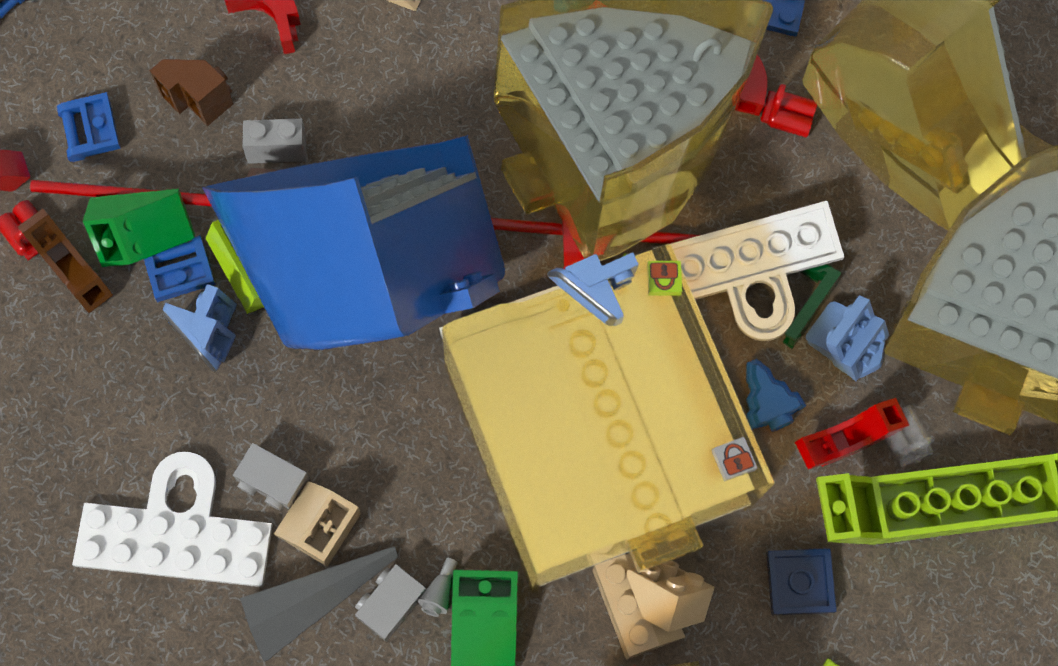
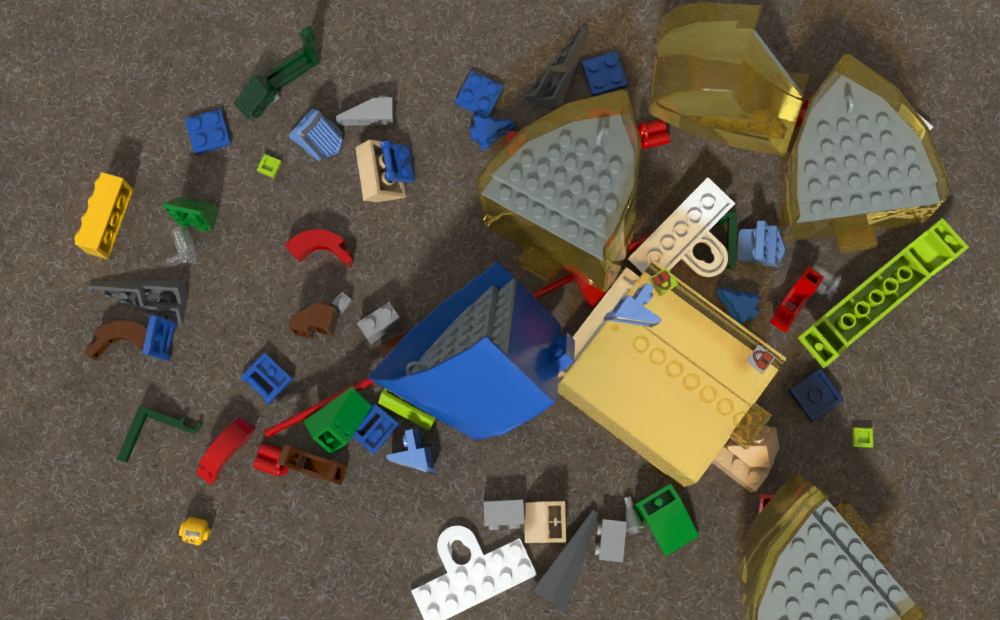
camera: 30 degrees left, 5 degrees up
(245, 89) = (341, 302): none -> light grey hose

